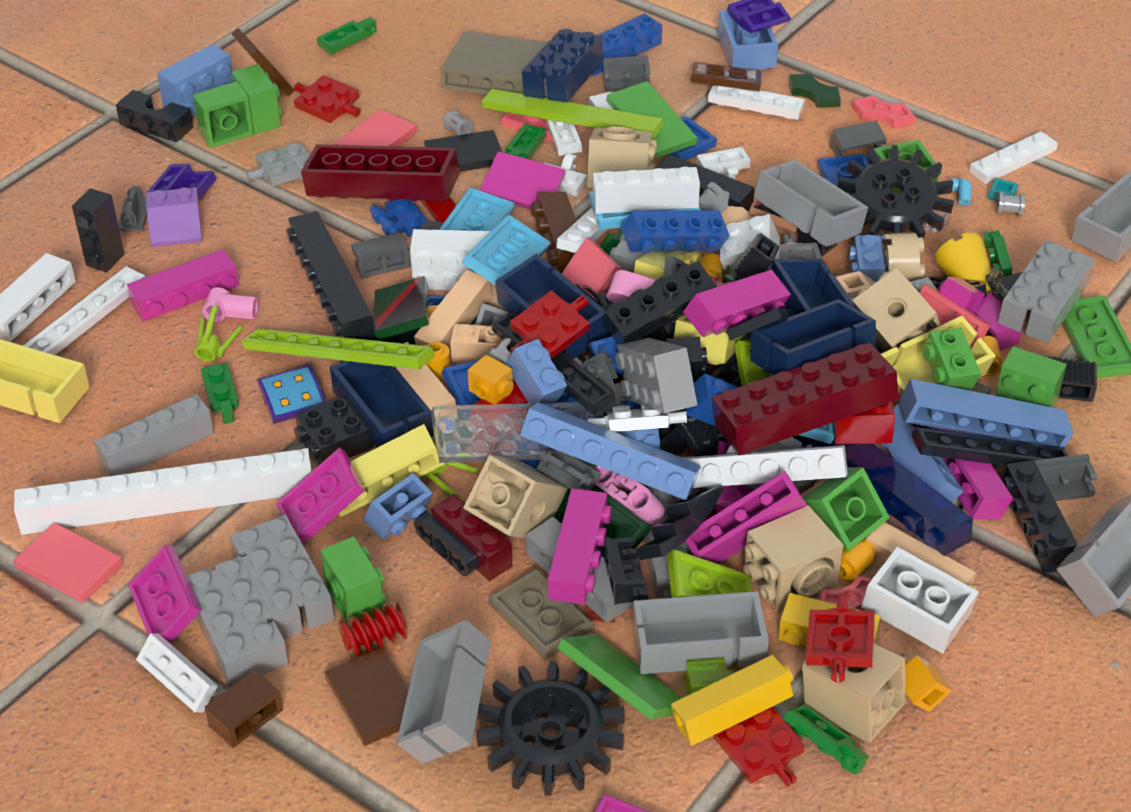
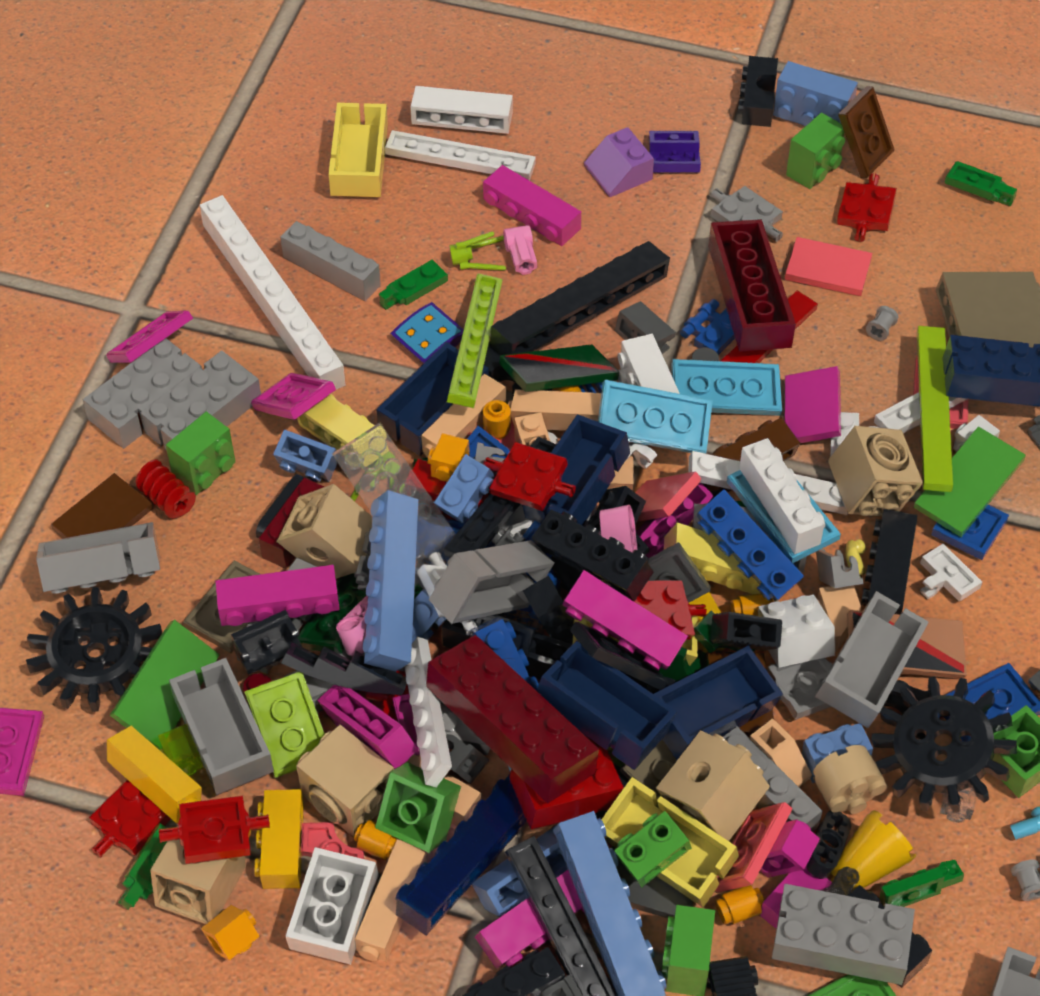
camera: 70 degrees right, 10 degrees up
(68, 562) = (179, 265): coral tile -> none
(98, 230) = (549, 114): black brick -> none
(133, 211) = (602, 130): dark grey hinge -> none
(176, 672) = (82, 377): white plate -> none
(223, 114) = (772, 132): bright green brick -> none
(243, 708) = (57, 433): reddish brown brick -> none
(333, 427) = (382, 374): black brick -> none
(472, 149) = (844, 344): black tile -> none
(526, 141) = (877, 388): green hinge -> none

